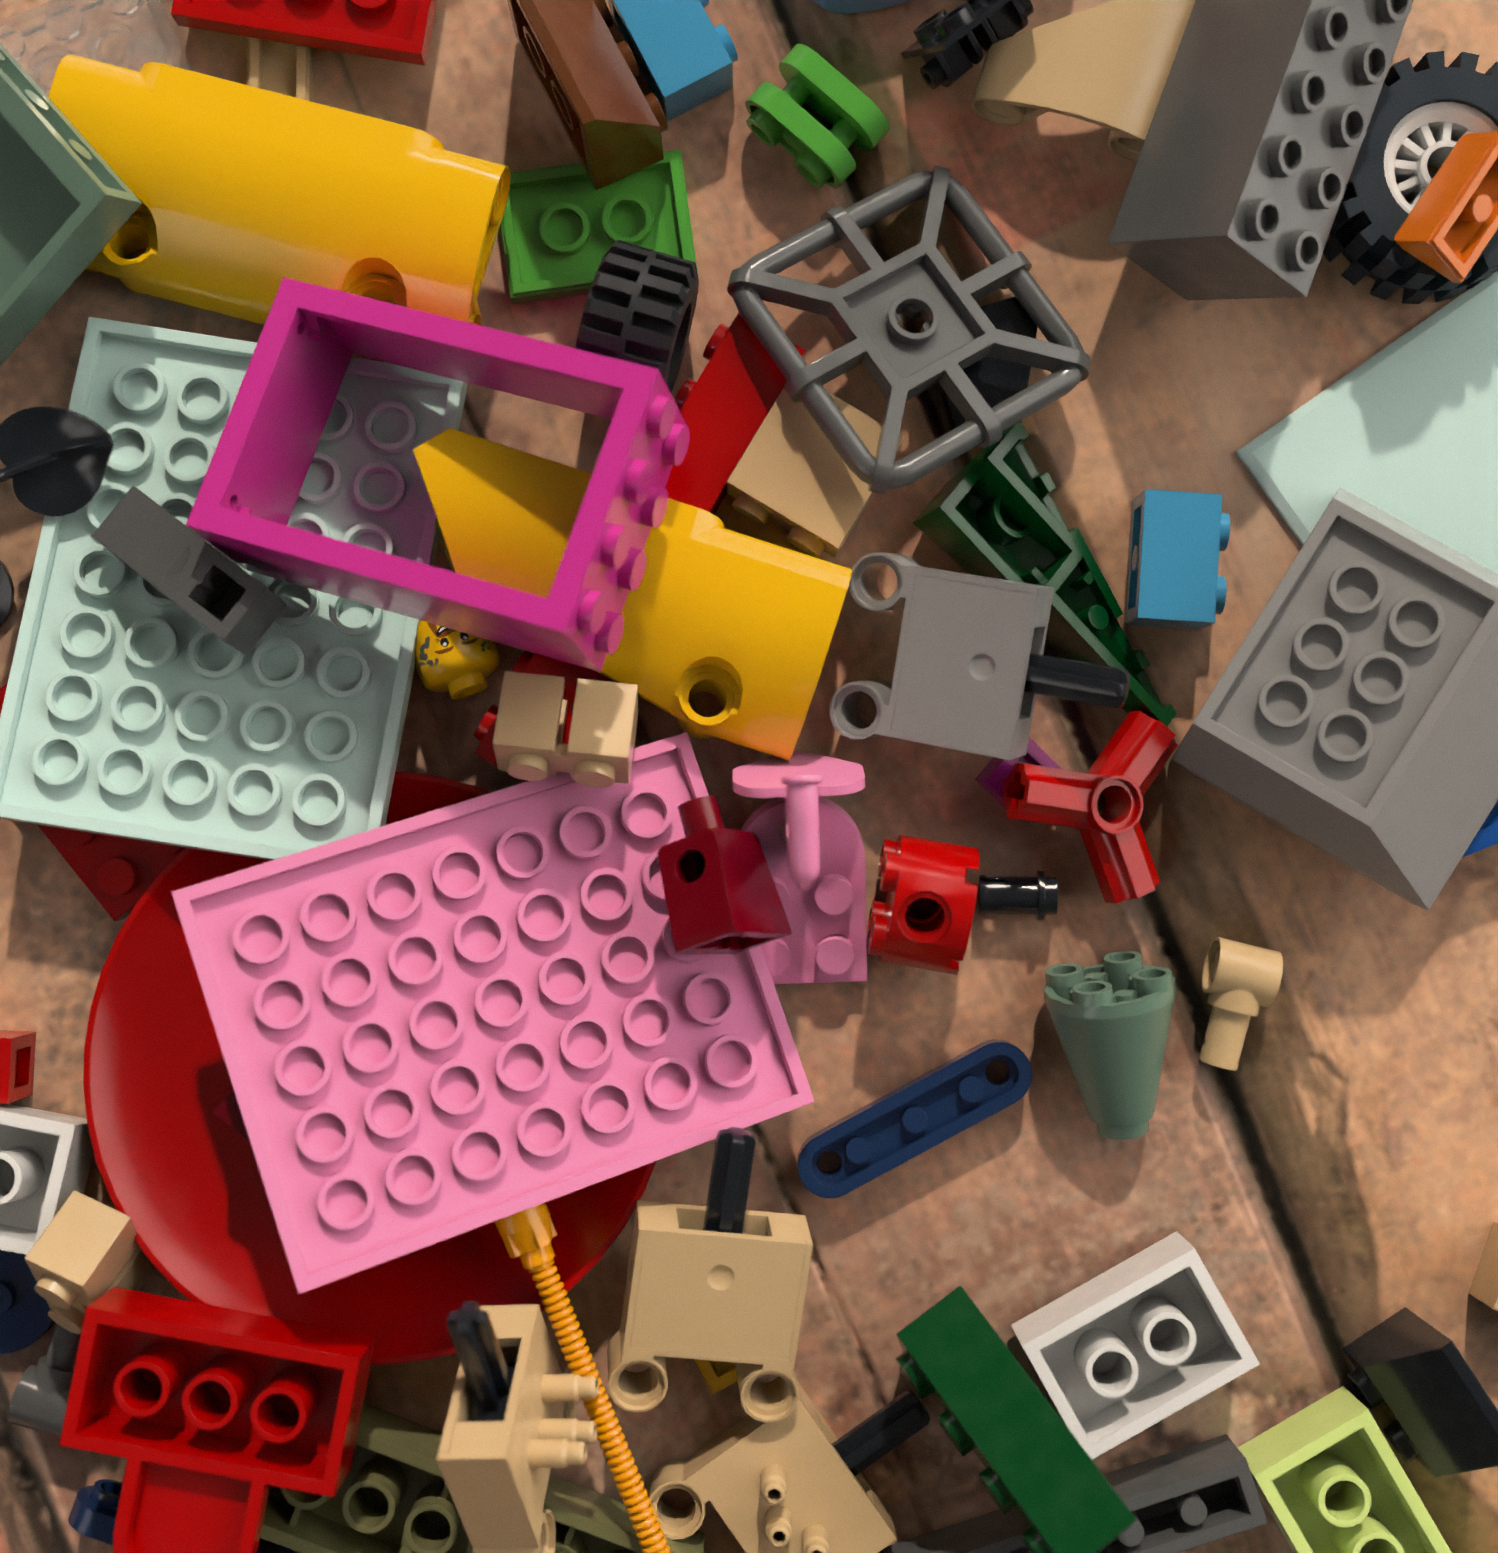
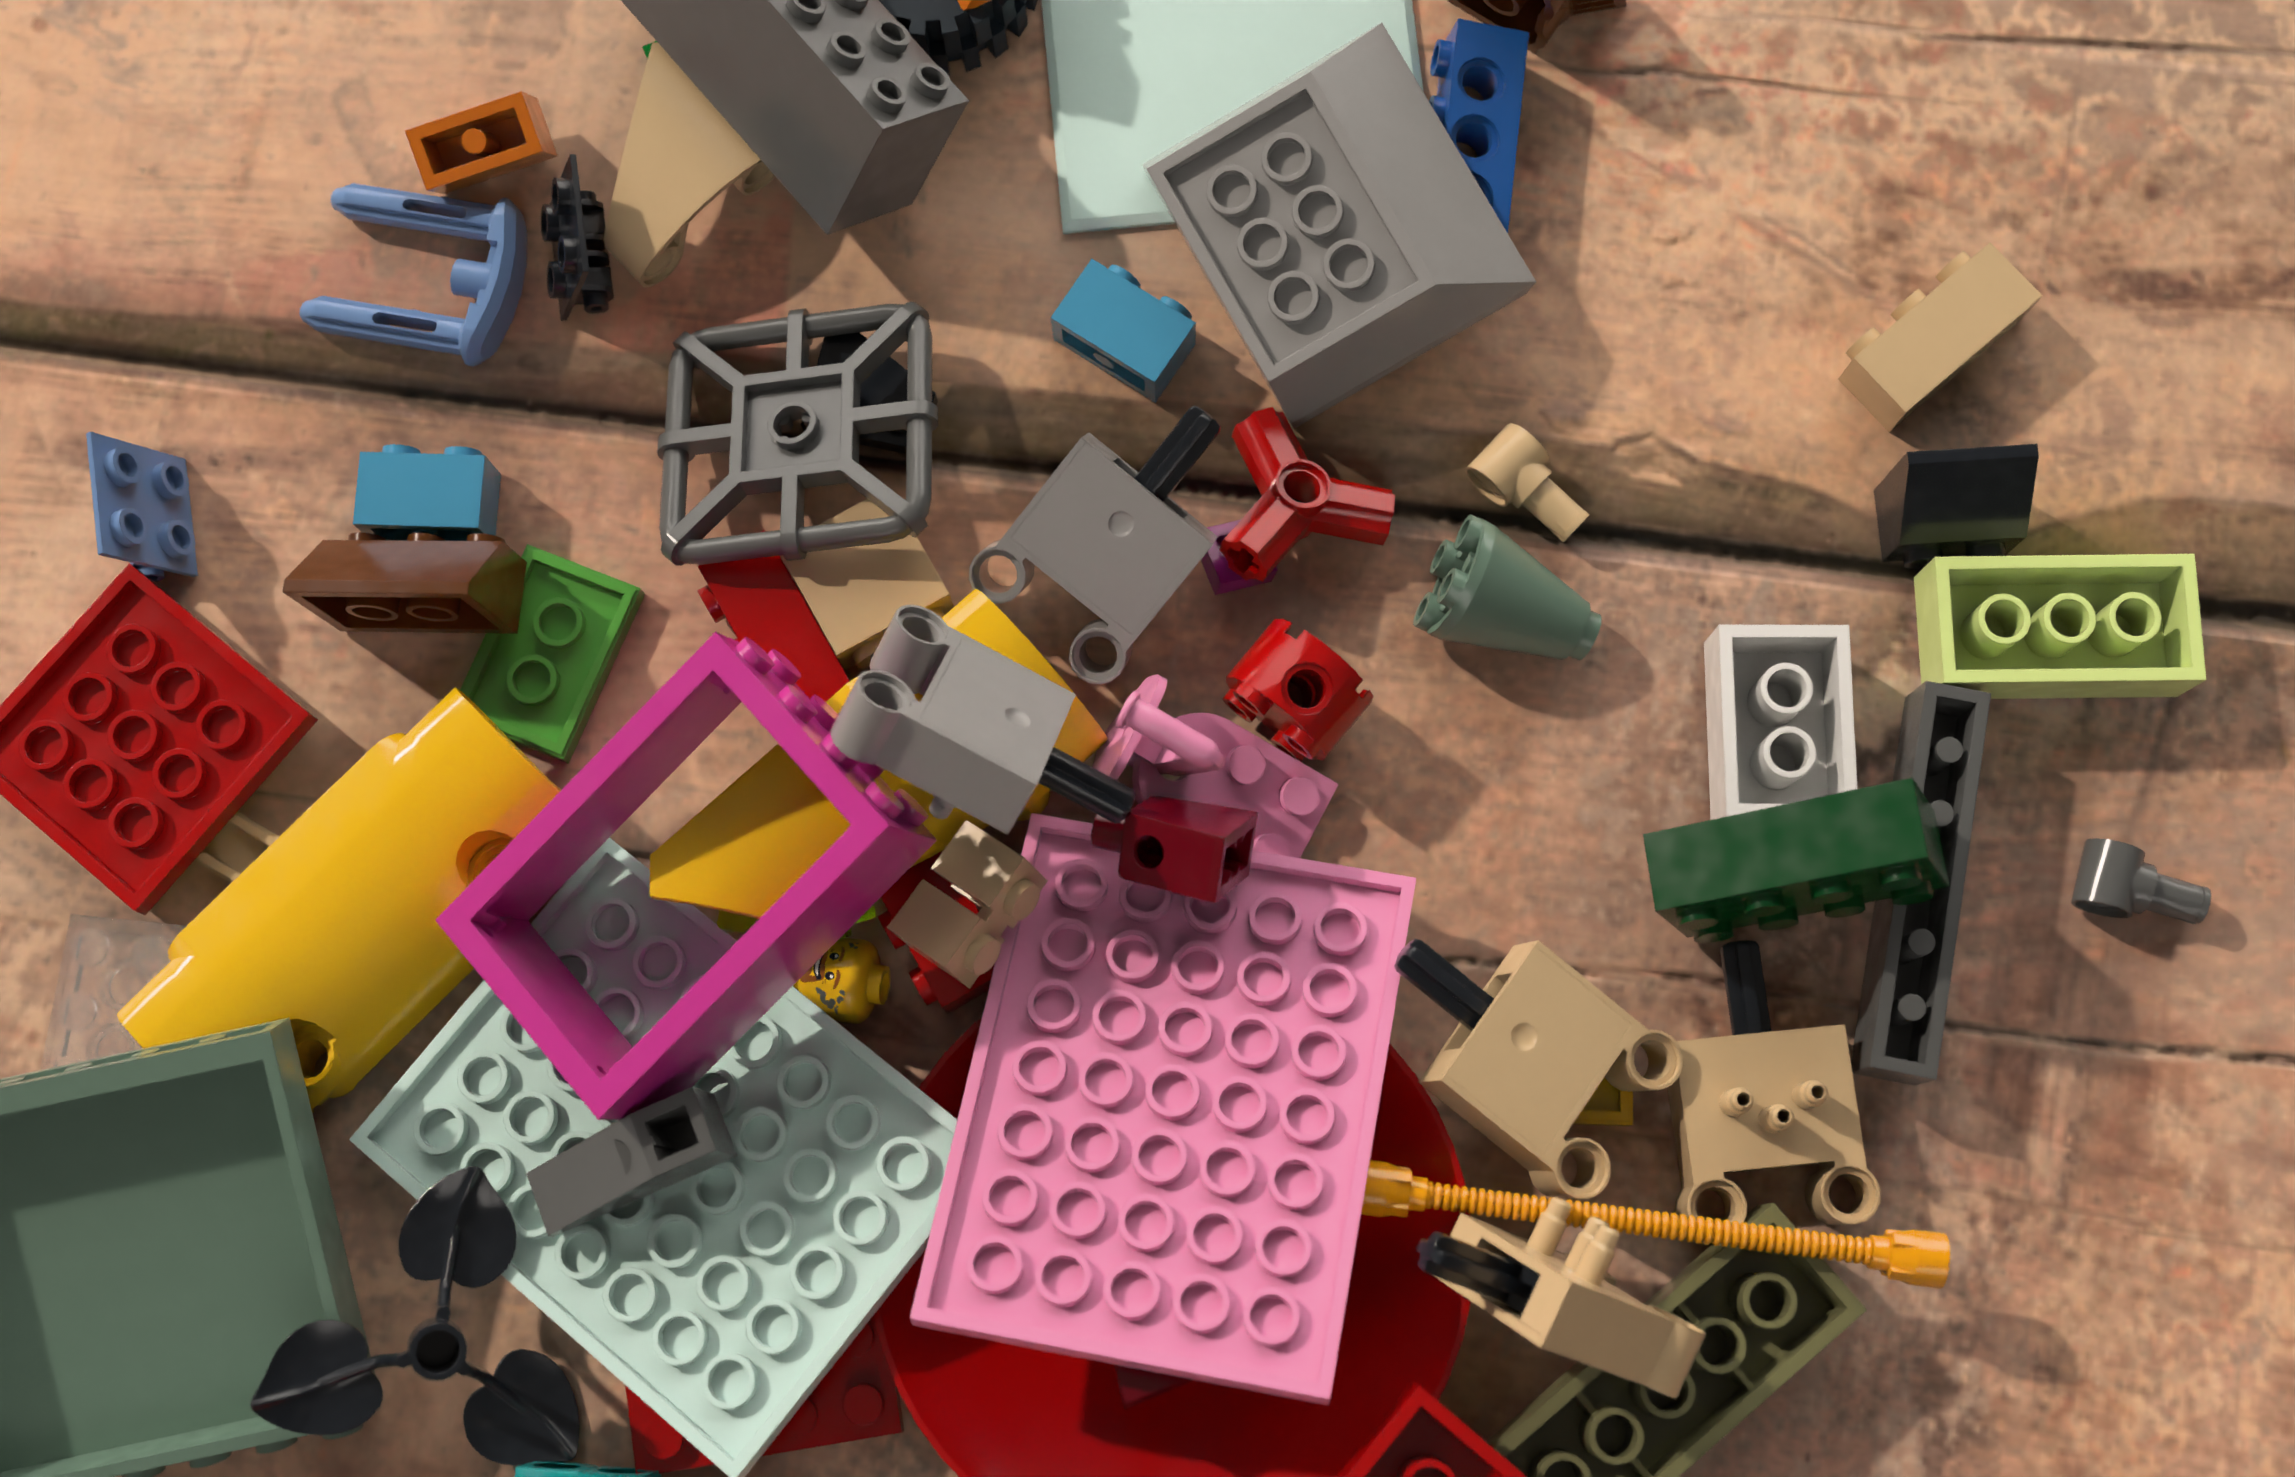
camera: 55 degrees left, 10 degrees down
(640, 308) = (641, 637): black tyre -> none
(708, 654) = (976, 734): none -> light grey piece
(818, 153) = (602, 430): bright green brick -> none
(914, 1118) = (1481, 810): dark blue plate -> none
(1006, 526) = (1006, 450): dark green wedge -> none
(1018, 895) = (1339, 610): black pin -> none

